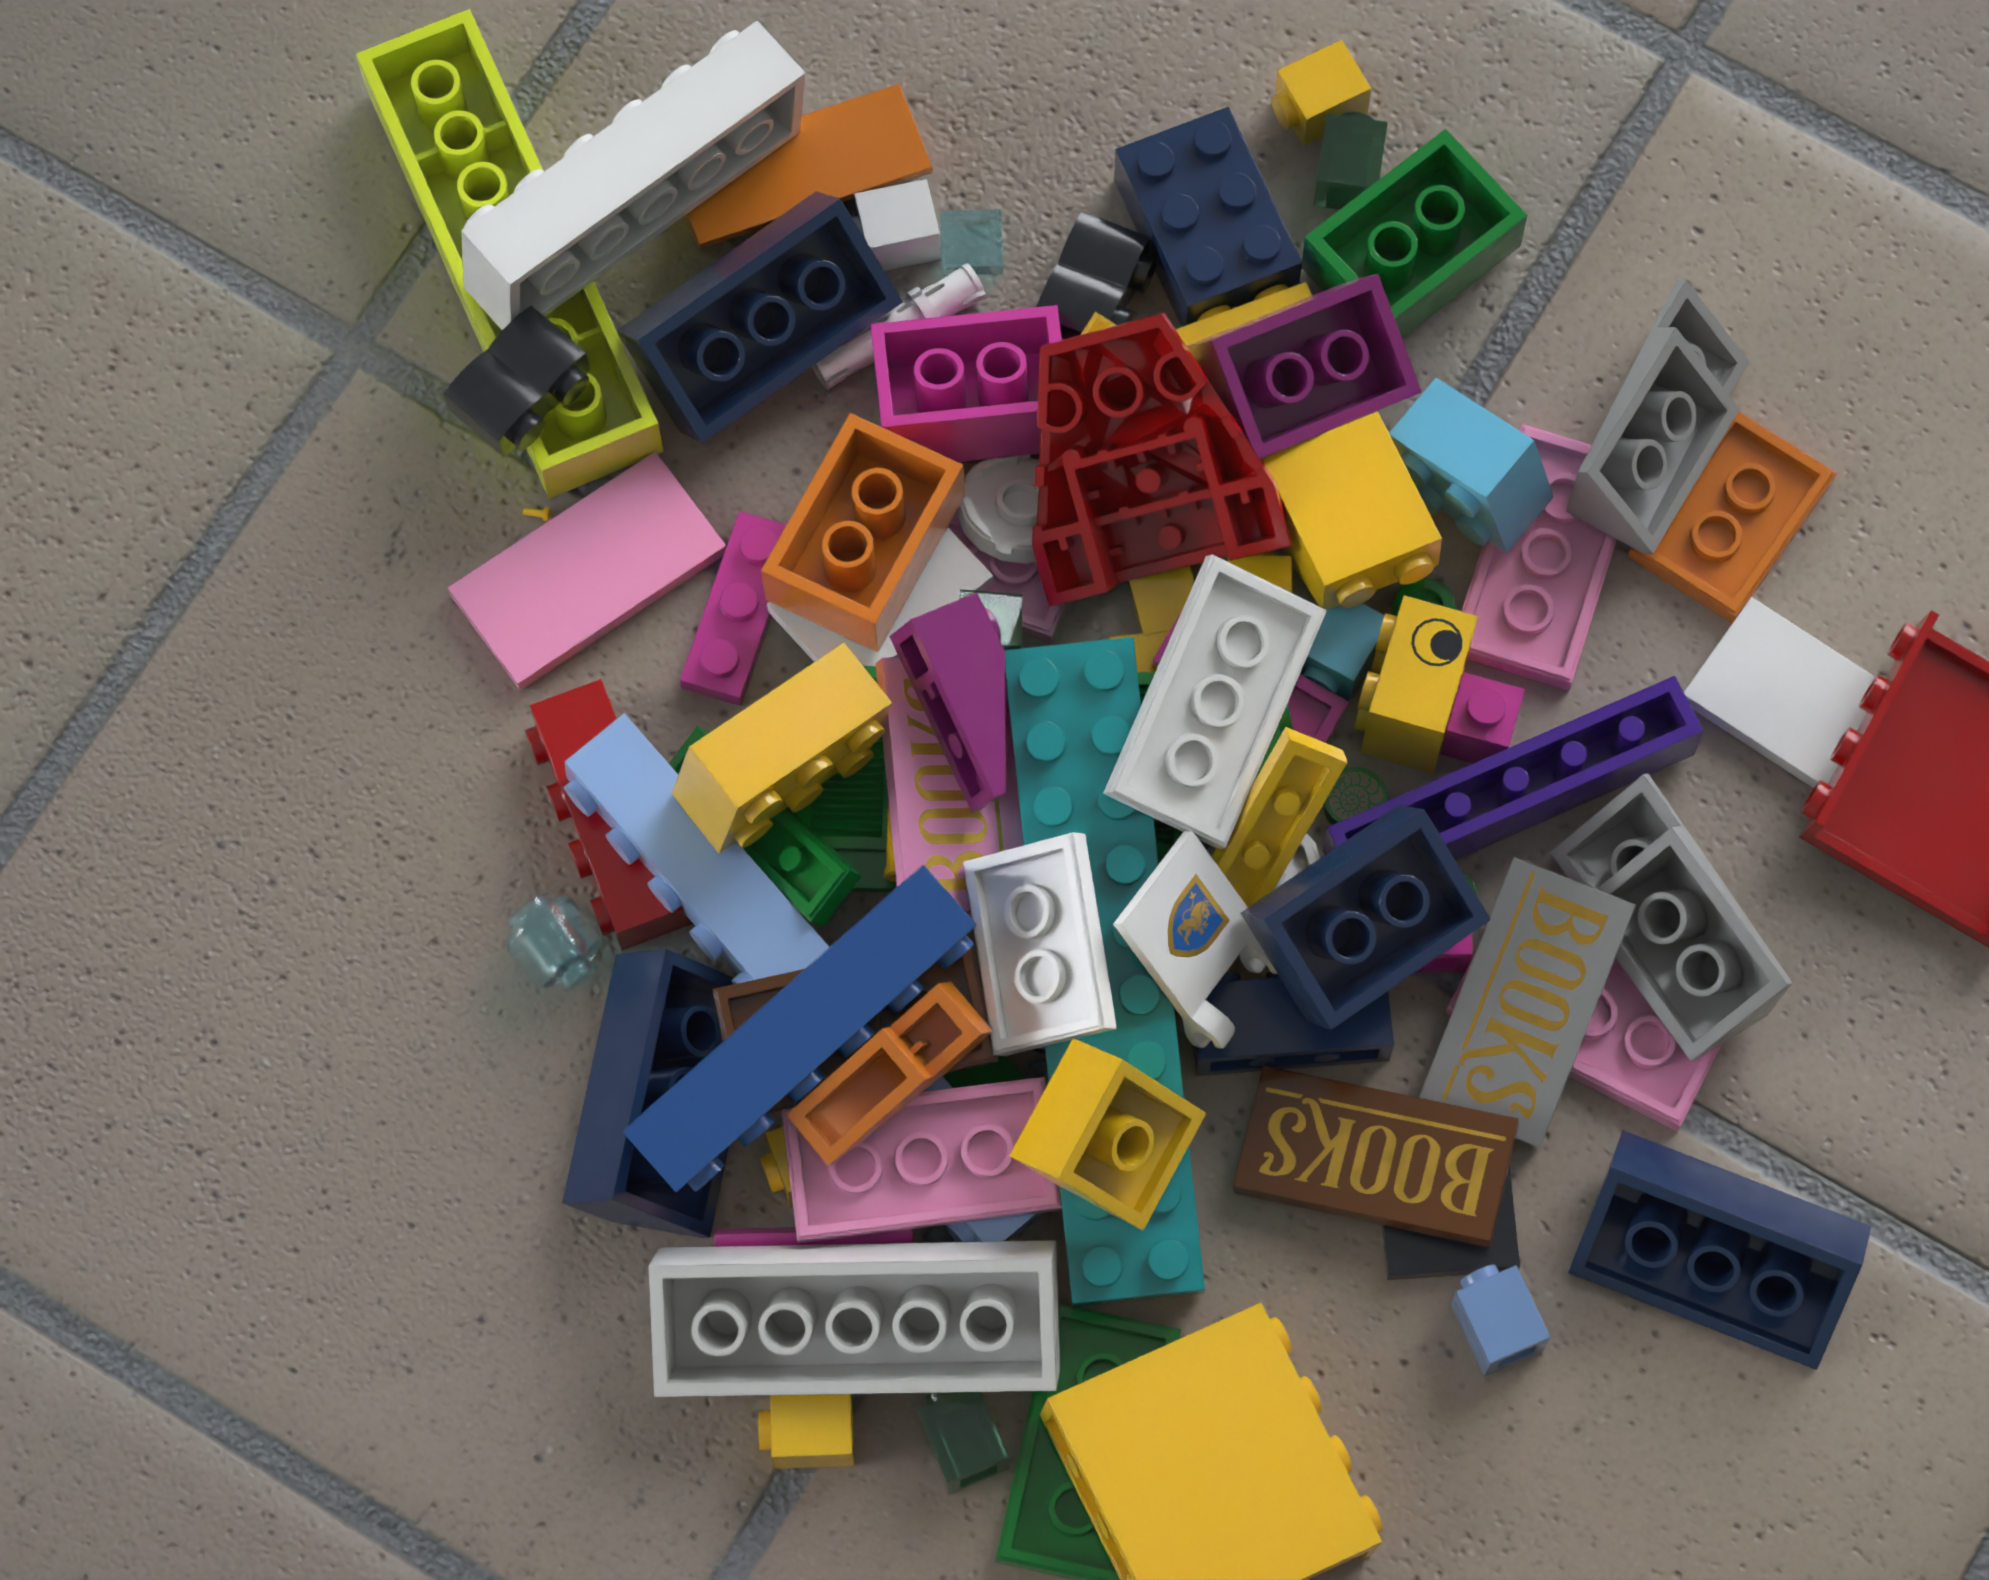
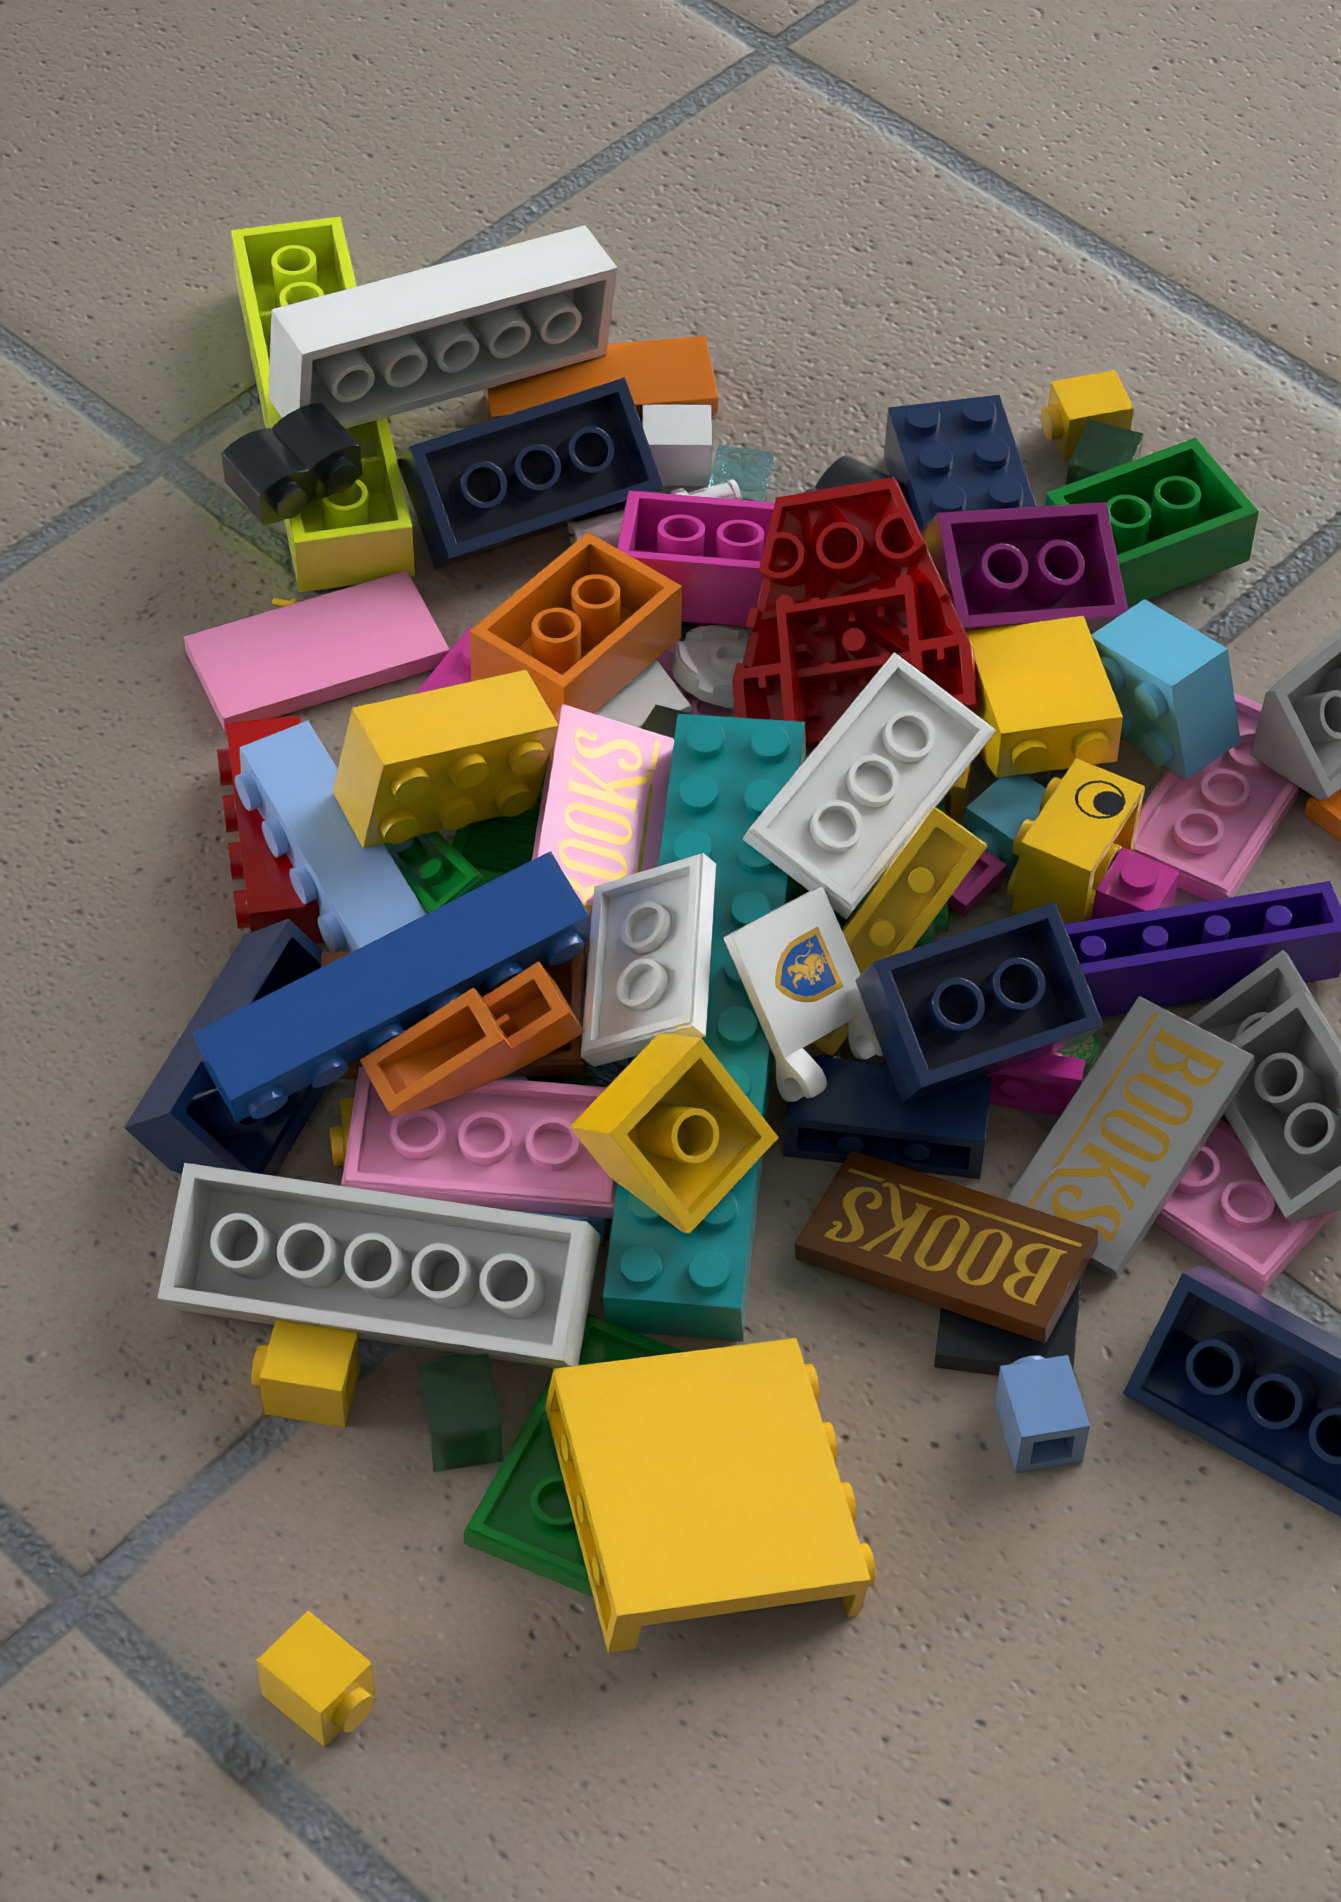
camera: 10 degrees right, 20 degrees down
(553, 942) = (187, 917): clear light blue head -> none
(960, 682) = (627, 725): magenta slope -> none

